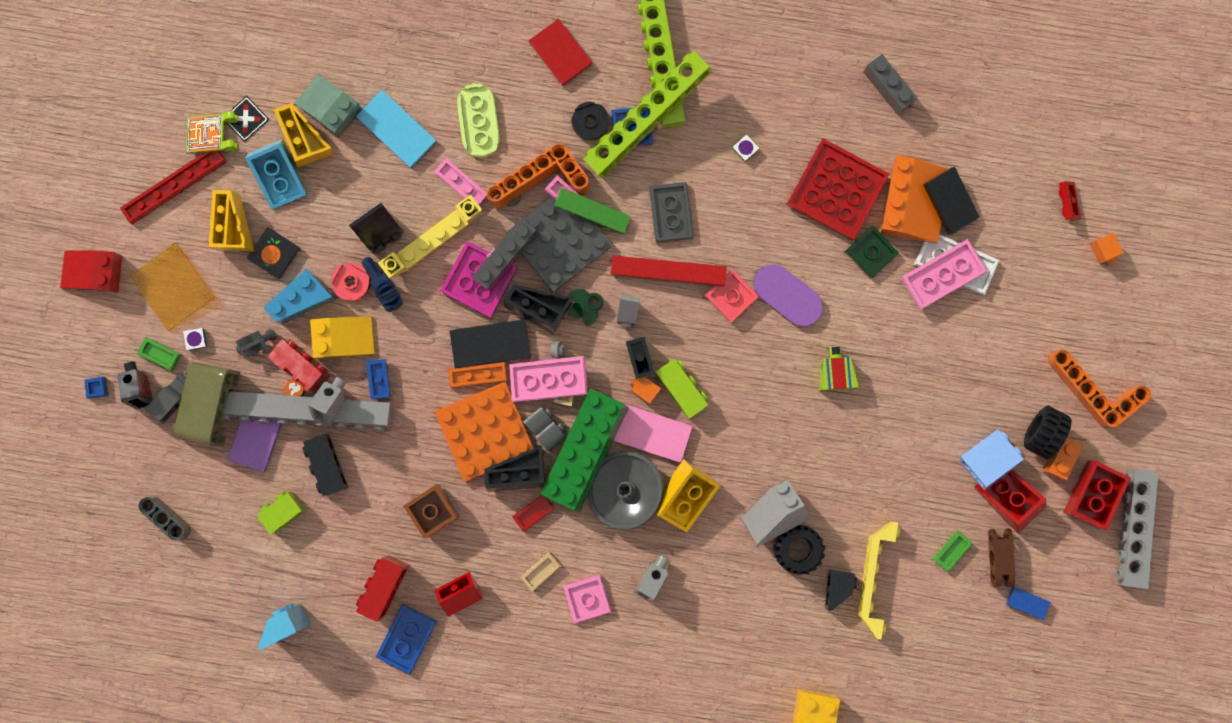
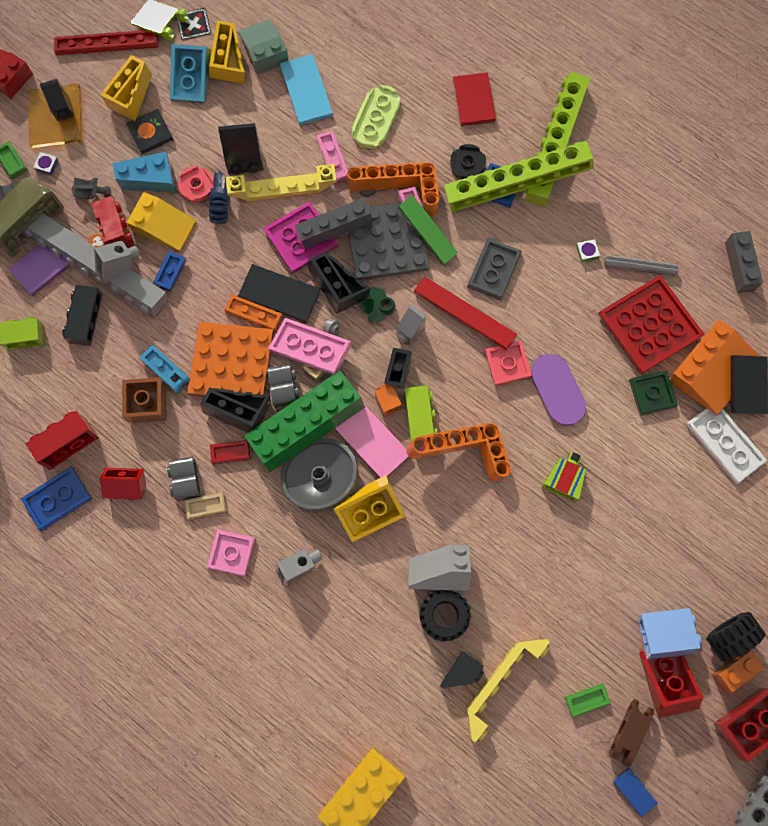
camera: 30 degrees right, 10 degrees down
(171, 274) = (57, 100): none -> black slope
(429, 471) = (164, 368): none -> dark azure plate
(508, 559) = (184, 478): none -> dark grey brick
(732, 392) = (463, 442): none -> orange beam
(800, 136) = (641, 265): none -> light grey axle
(943, 274) = (709, 445): bright pink tile -> none

